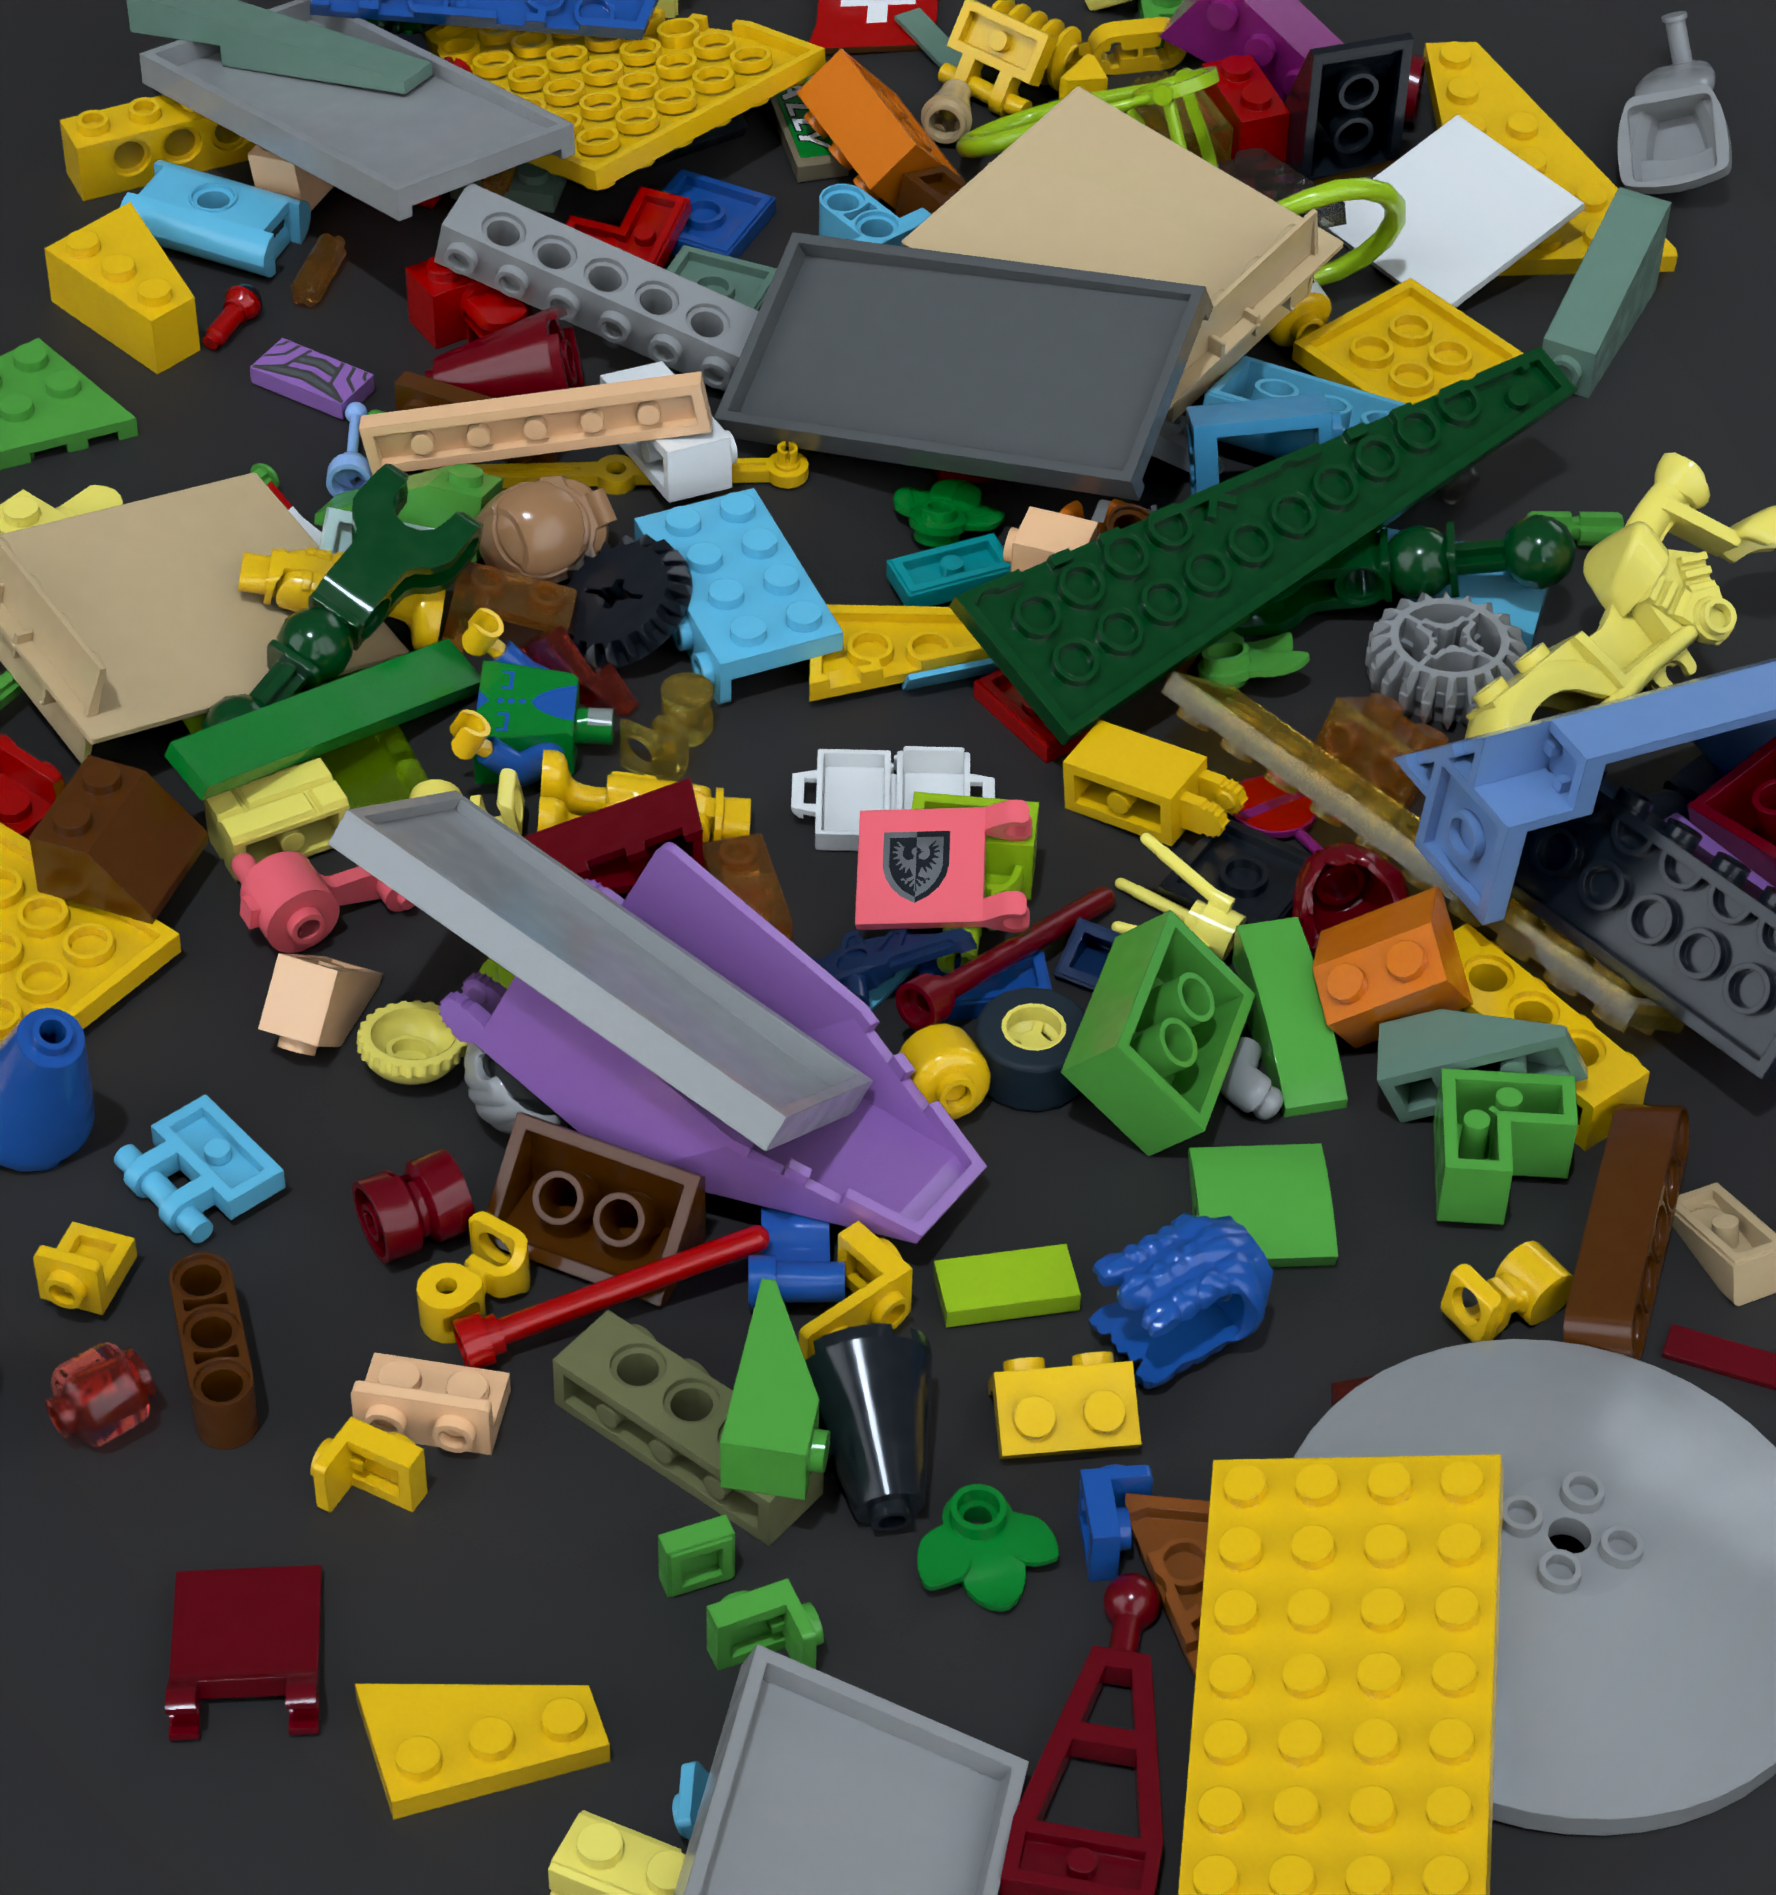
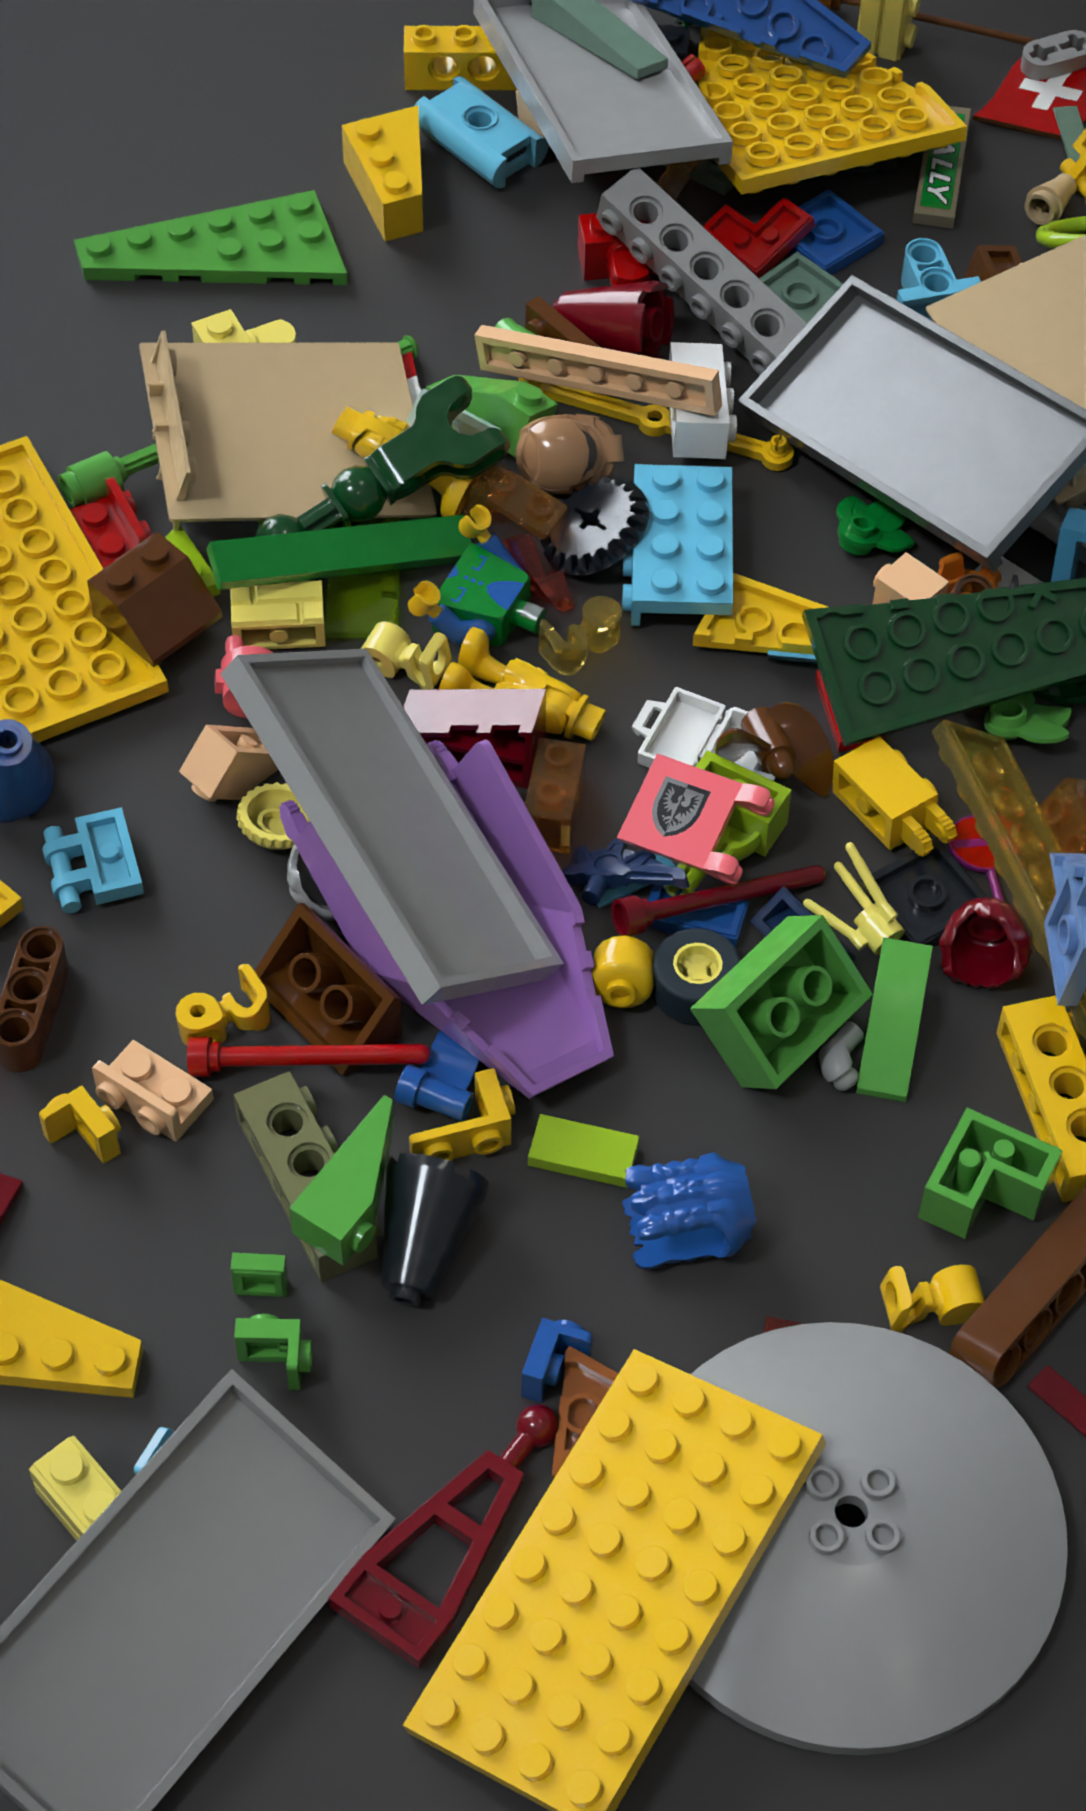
camera: 25 degrees right, 10 degrees up
(240, 305) = (465, 205): red piece -> none
(311, 378) = (484, 278): medium lavender tile -> none
(318, 270) = (530, 195): clear orange piece -> none
(350, 464) = (465, 359): light blue hinge -> none
(421, 1203) = (210, 941): dark red wheel -> none
(868, 127) = (980, 199): orange slope -> none
(946, 571) = (840, 576): teal plate -> none
(987, 1556) = (455, 1351): green plate -> none
(996, 758) = (785, 743): none -> reddish brown piece
(1065, 1407) = (569, 1261): yellow bracket -> none
(1272, 1192) = (797, 1157): bright green slope -> none
(1389, 967) = (978, 1010): orange slope -> none
(1421, 1045) = (996, 1093): sand green slope -> none

